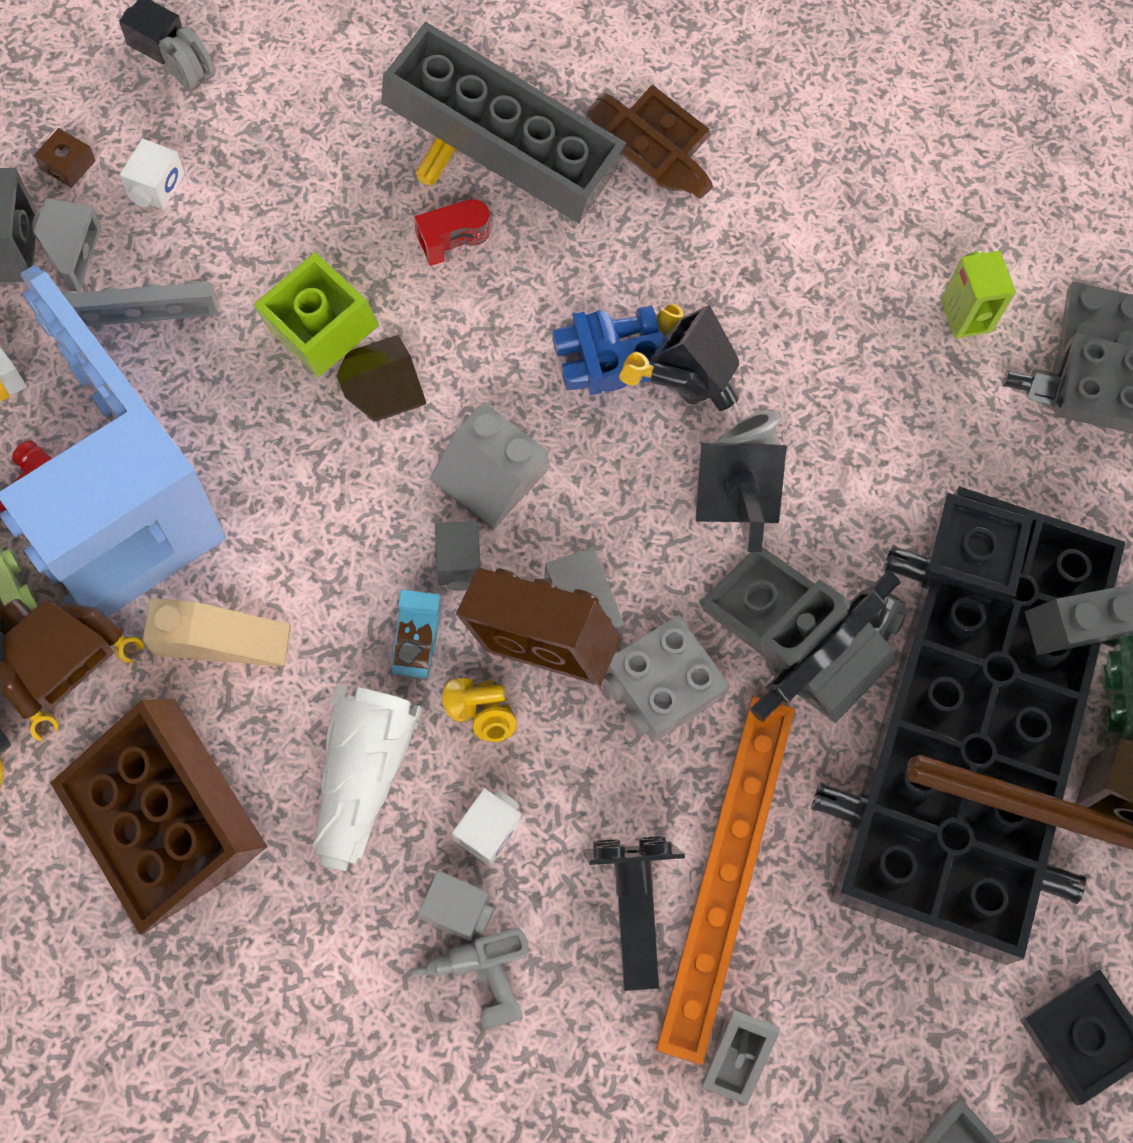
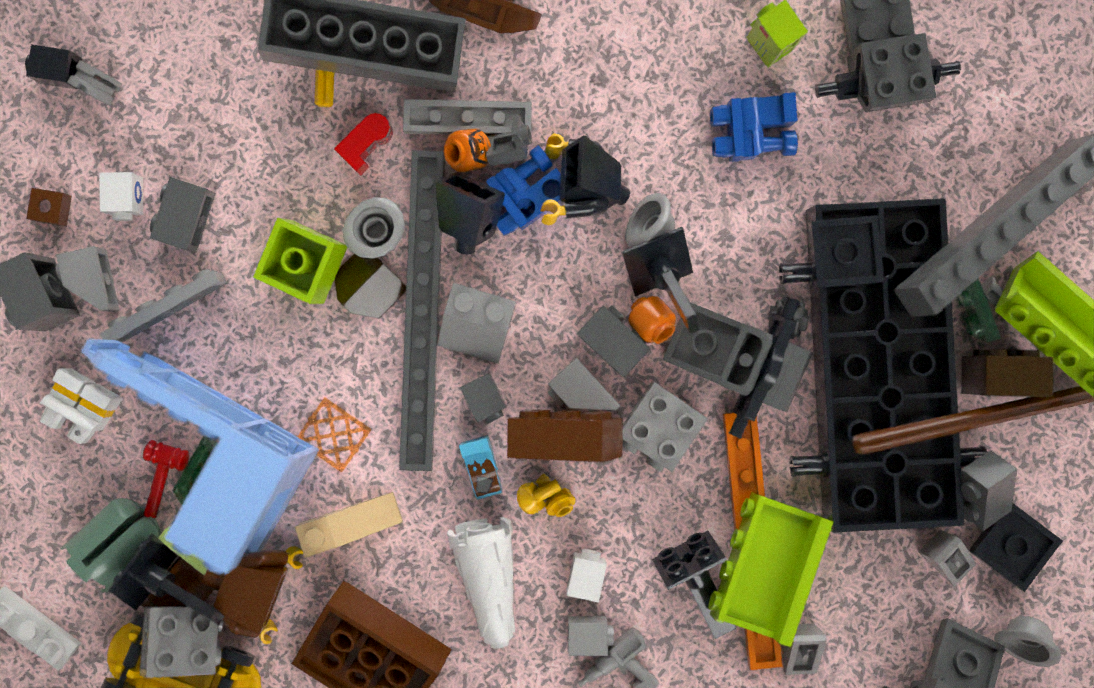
camera: 15 degrees left, 20 degrees up
(207, 220) = (181, 214): none -> dark grey brick
(236, 502) = (312, 420): none -> clear orange window
(419, 314) = (373, 228): none -> light grey hat
(425, 438) = (421, 314): none -> dark grey plate
(536, 337) = (467, 210): none -> black torso
(566, 278) = (467, 150): none -> orange head
(581, 251) = (455, 115): none -> light grey plate
(615, 293) = (510, 145): none -> dark grey bracket
(648, 553) = (613, 340): none -> dark grey brick
(706, 547) = (652, 319): none -> orange head
(735, 912) = (770, 568): none -> lime panel
(909, 379) = (745, 126): none -> blue hips
(991, 1014) = (948, 556): none -> light grey slope
(1070, 927) = (987, 489): none -> dark grey brick

